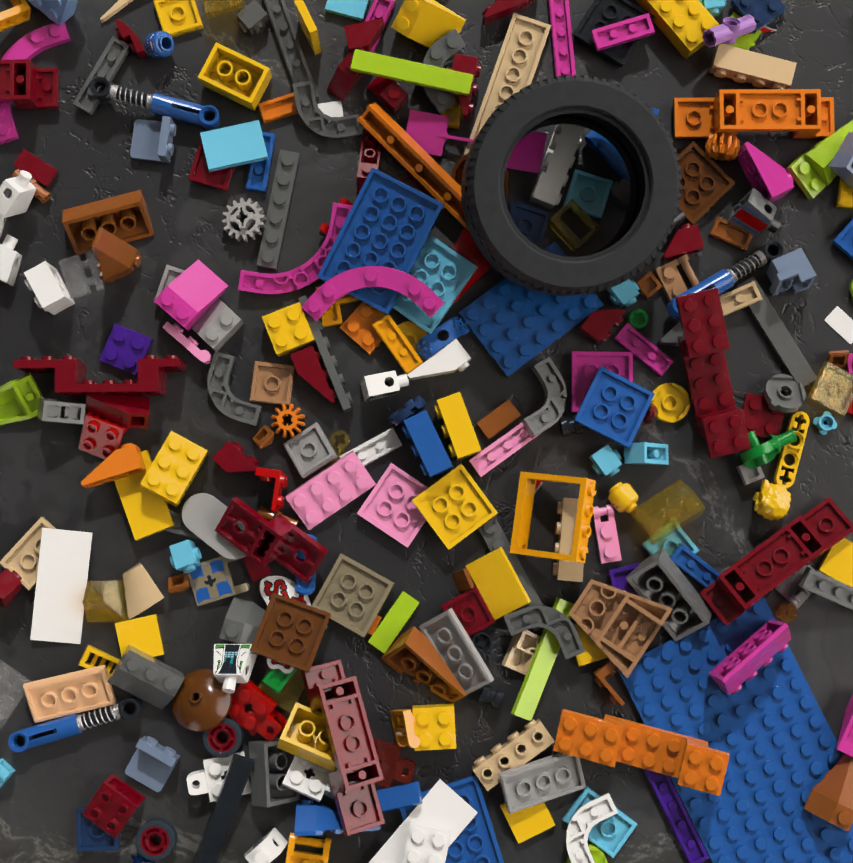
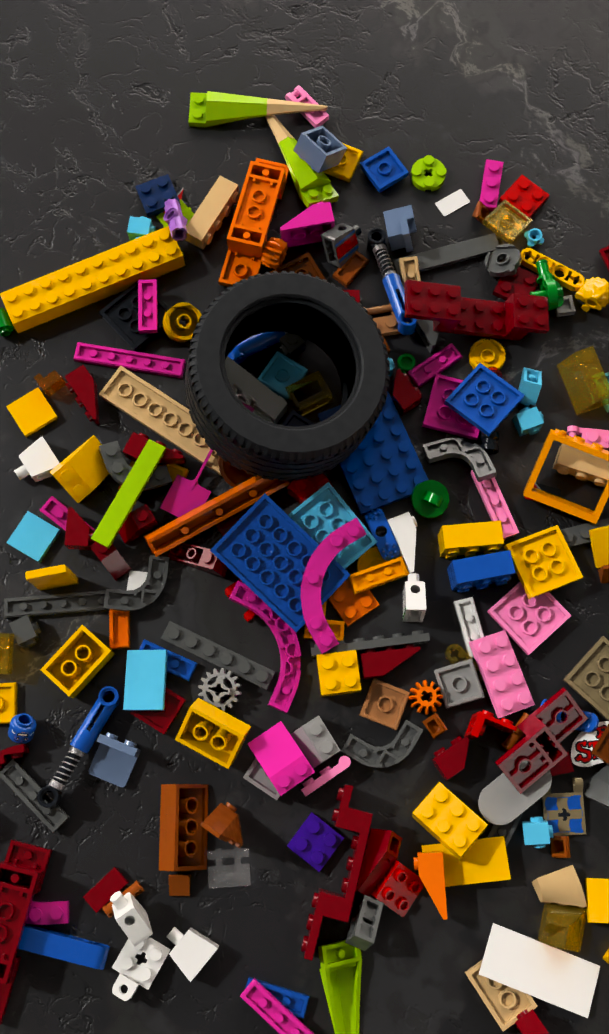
camera: 75 degrees left, 10 degrees down
(48, 287) = (235, 905): white brick -> none
(56, 234) = (179, 884): none -> dark orange slope
(199, 223) = (213, 733): none -> yellow brick
(409, 409) = (447, 582): dark blue plate -> none
(492, 377) = (429, 498): none -> green tile
(498, 419) = (468, 504): dark orange tile -> none
(617, 61) = (171, 319): none -> yellow brick
(623, 497) = (564, 414): yellow head -> none

